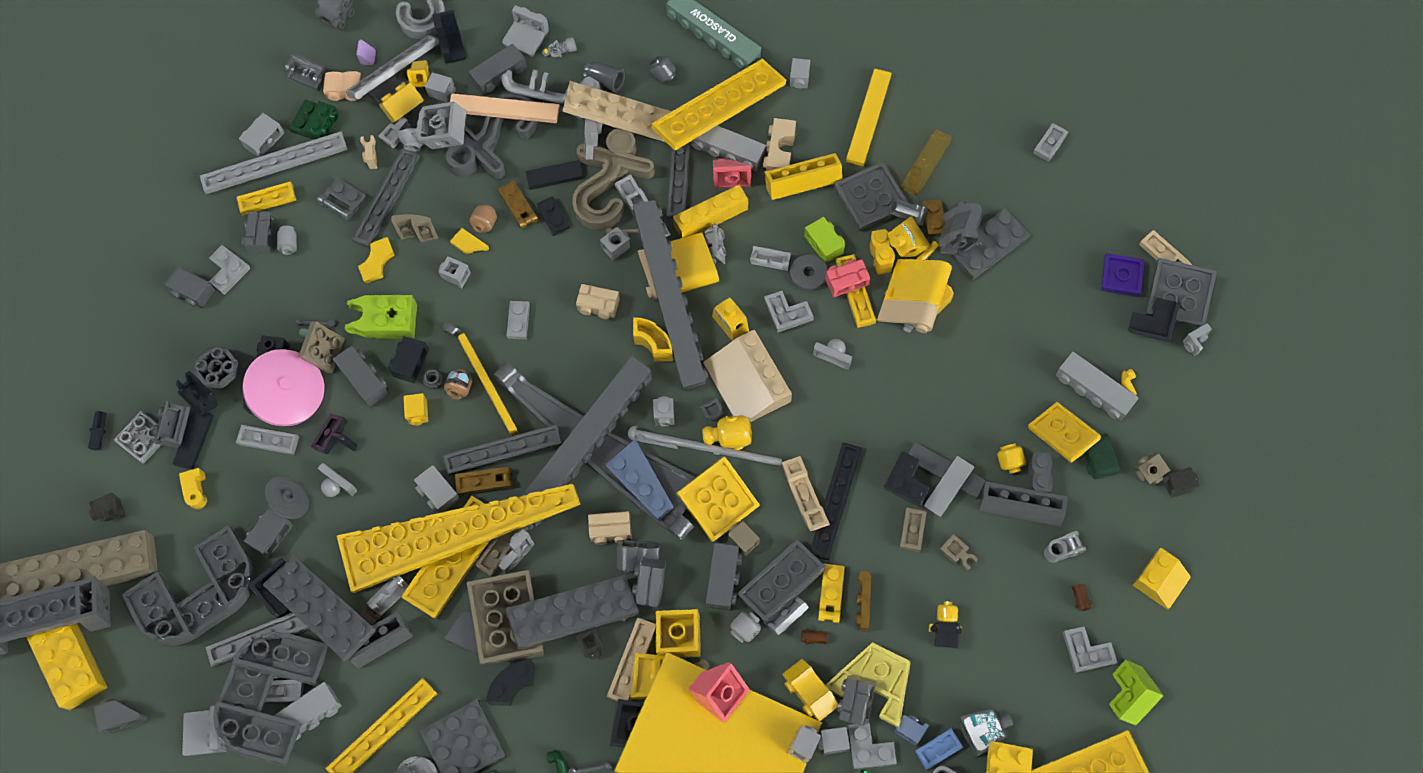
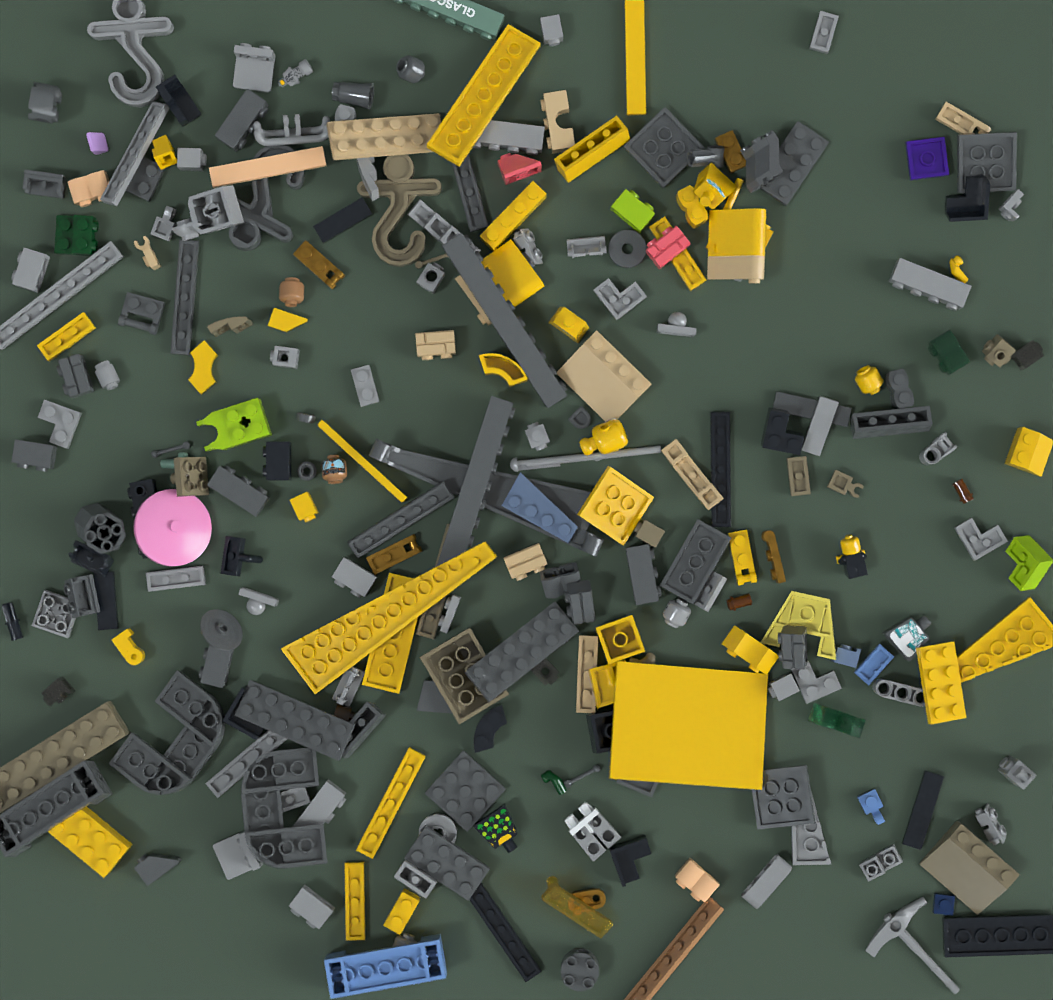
camera: 25 degrees left, 20 degrees up
(401, 101) = (158, 190): yellow brick -> none
(553, 215) = (357, 265): black plate -> none
(719, 690) = (675, 680): coral slope -> none
(804, 743) = (760, 699): light grey brick -> none
(926, 162) = (706, 92): clear yellow piece -> none
(1064, 432) = (911, 340): yellow tile -> none

